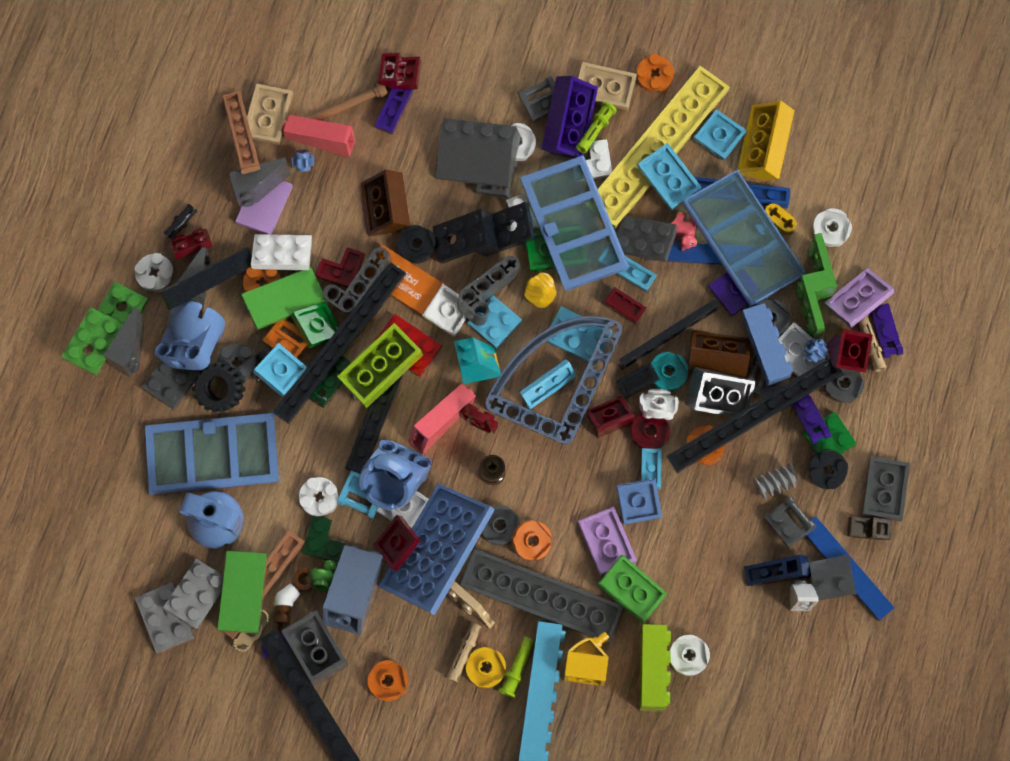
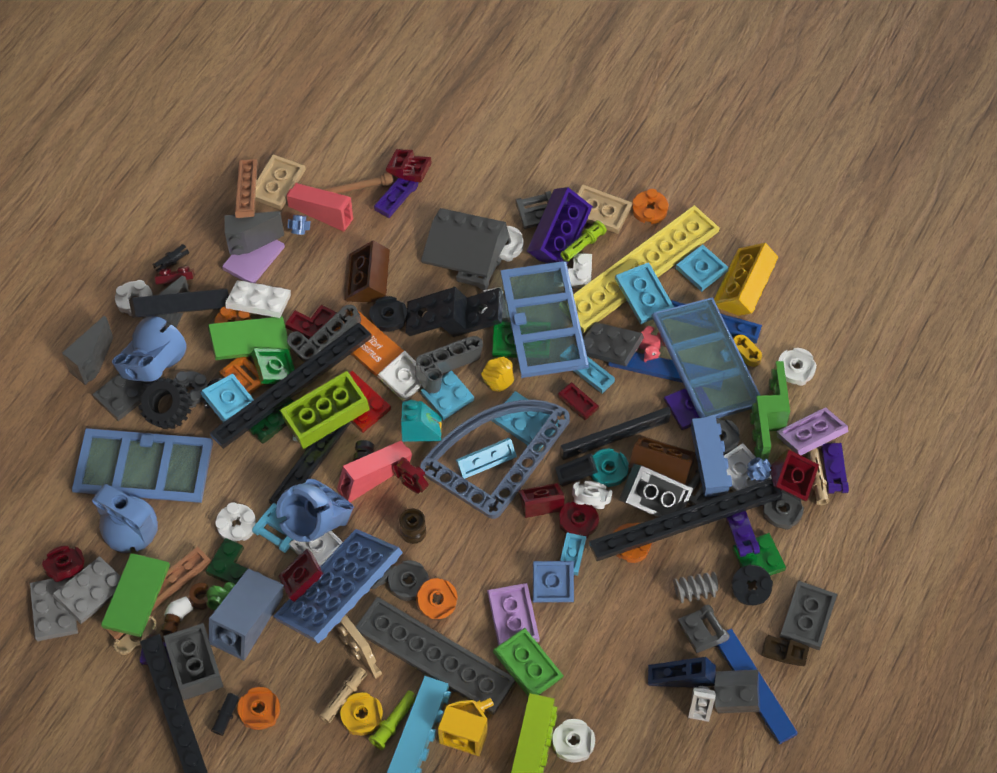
camera: 10 degrees right, 15 degrees down
(101, 328) = (65, 331): bright green bracket -> none
(167, 580) = (59, 571): none -> dark red plate
(357, 692) = (225, 714): none -> black axle
(426, 400) = (363, 449): none -> black wheel

